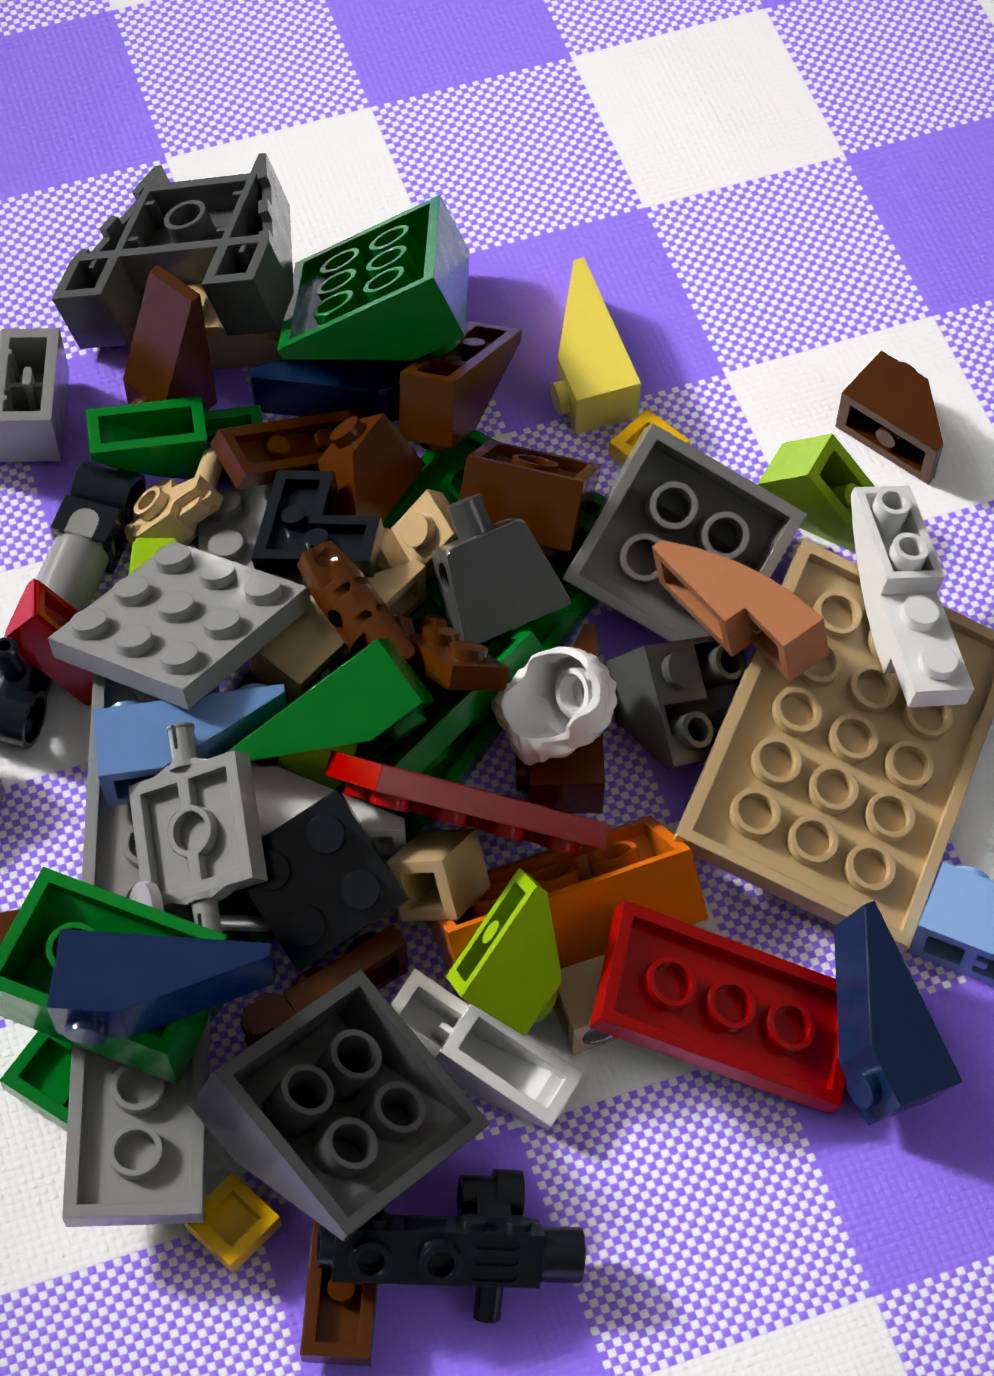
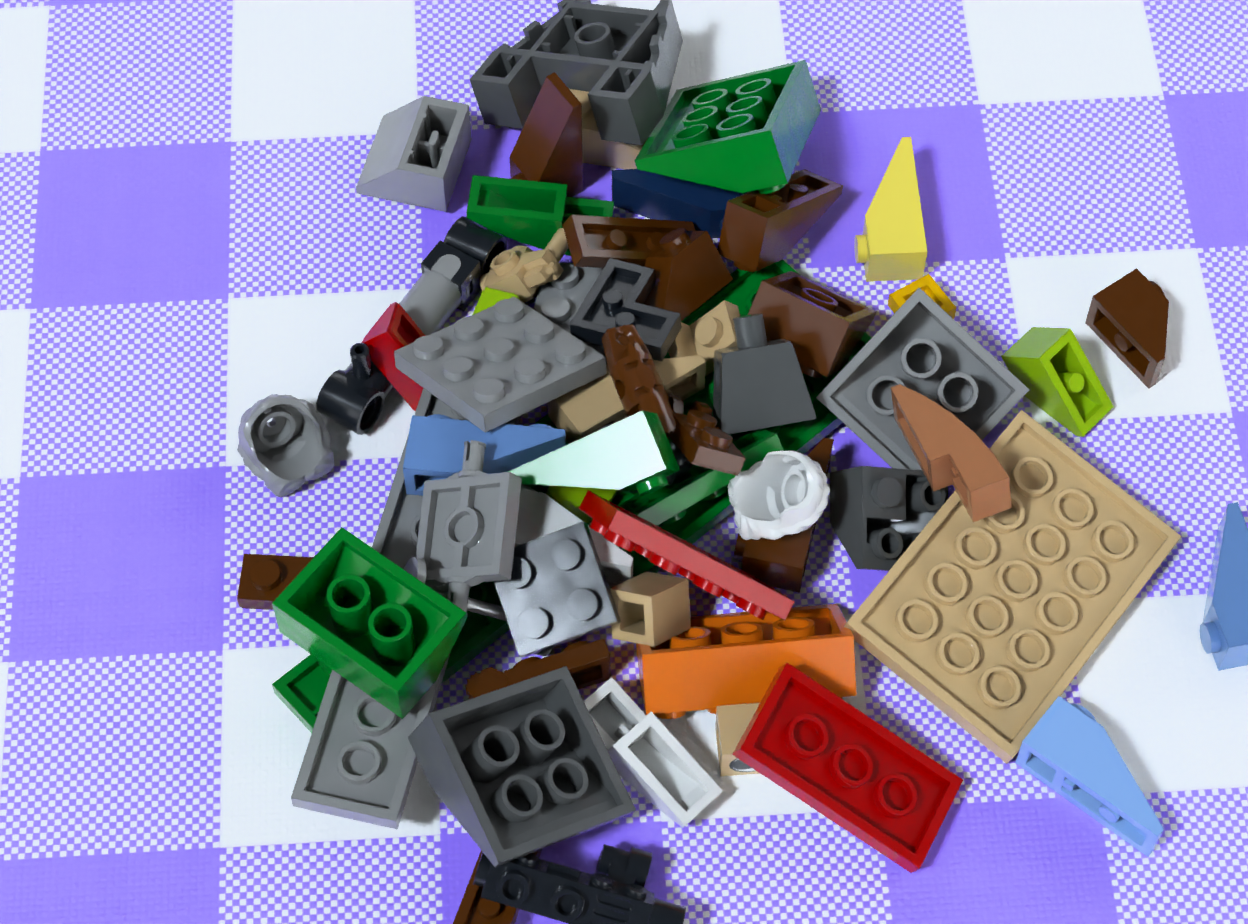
camera: 15 degrees right, 0 degrees up
(140, 982) = (392, 632): dark blue slope -> none
(234, 1223) = (421, 836): yellow plate -> none
(512, 958) = (686, 687): lime slope -> none
(884, 1028) = (971, 819): dark blue slope -> none
(902, 599) = (1088, 476): white slope -> none

